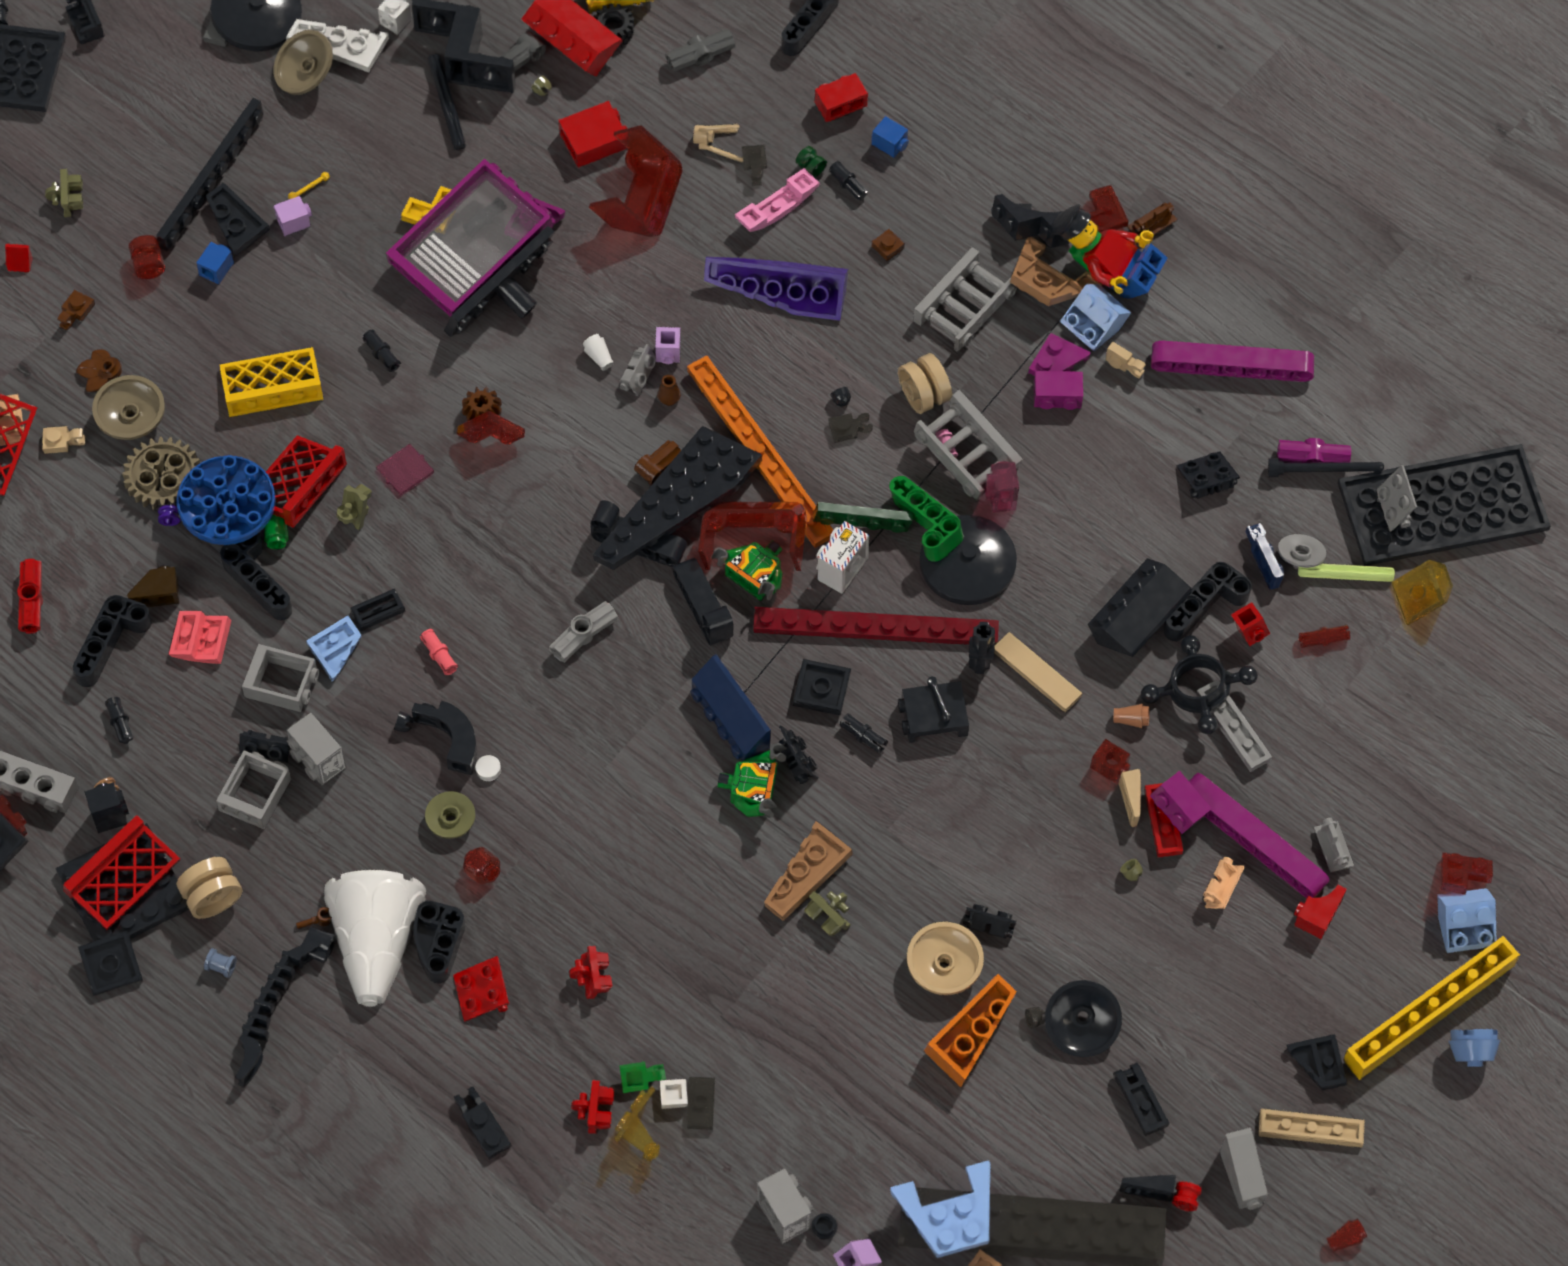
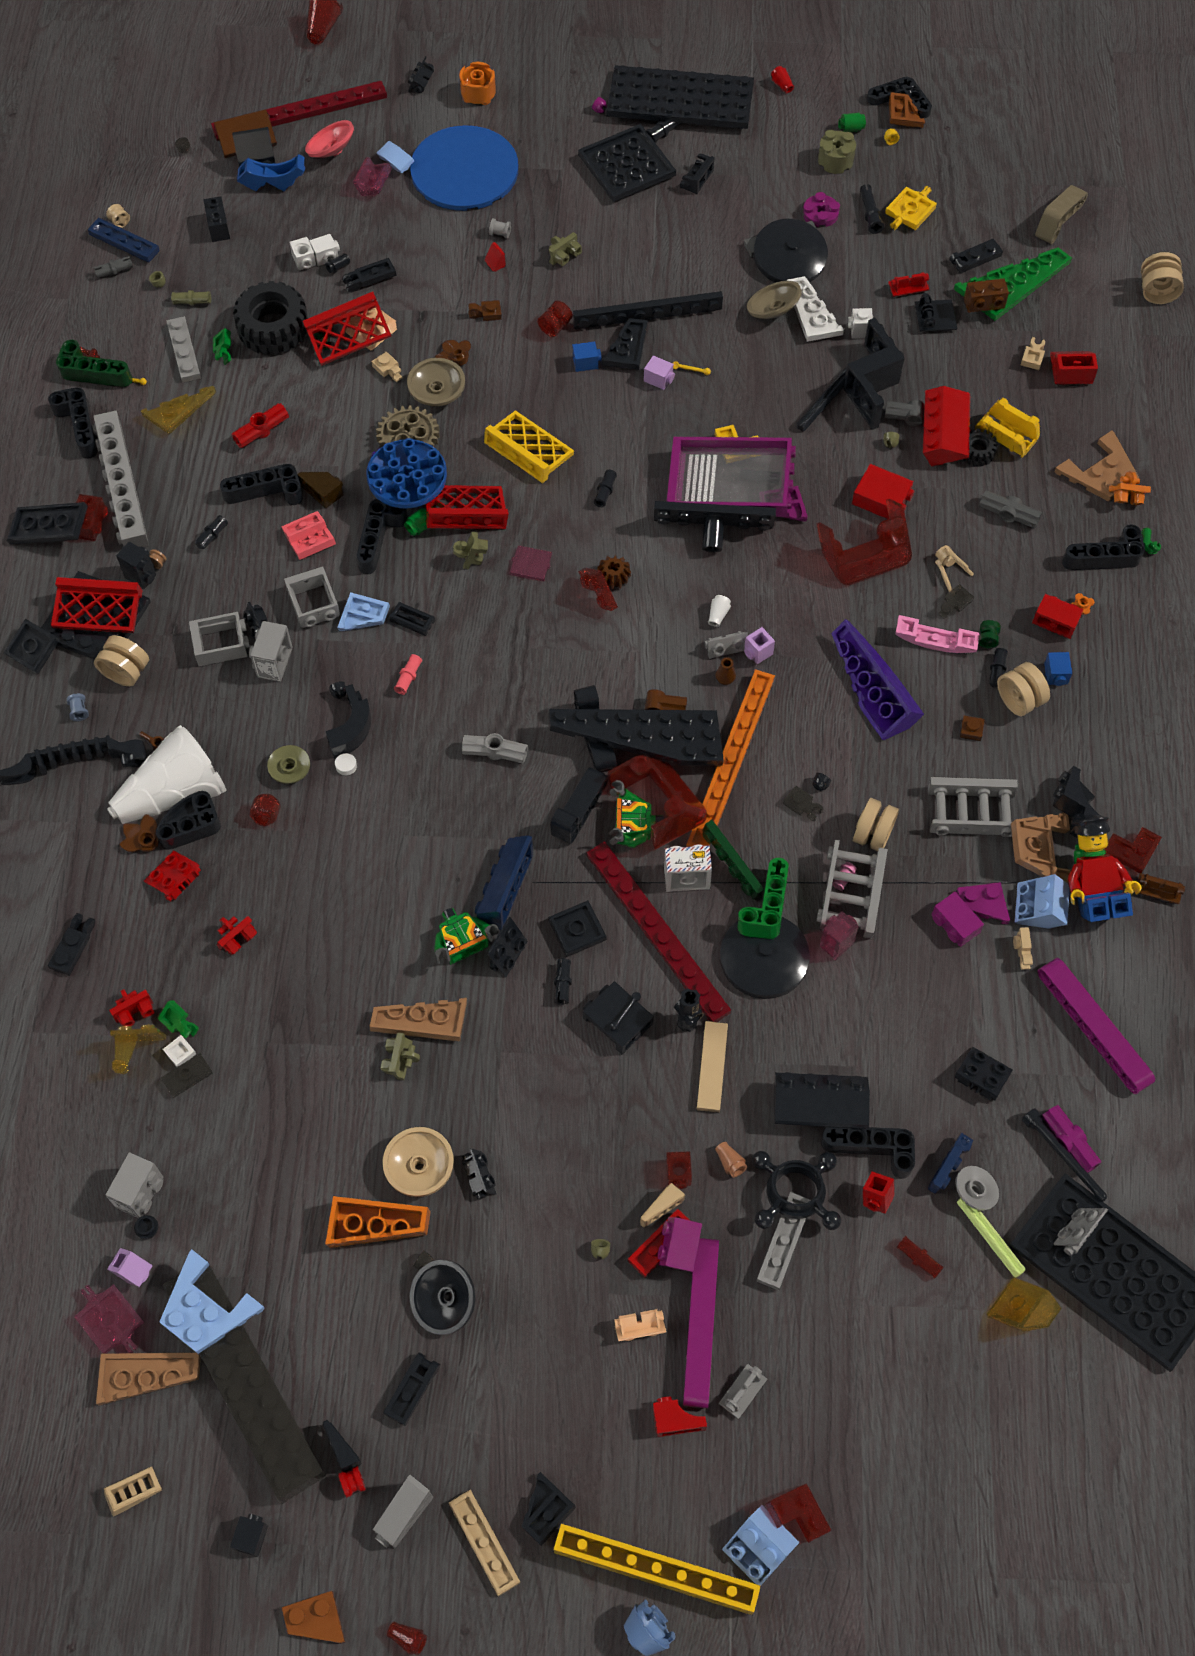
camera: 55 degrees right, 0 degrees up
(410, 992) = (137, 835): none -> reddish brown plate
(843, 65) = (1088, 602): none -> orange plate
(891, 176) = (1023, 689): none -> tan wheel

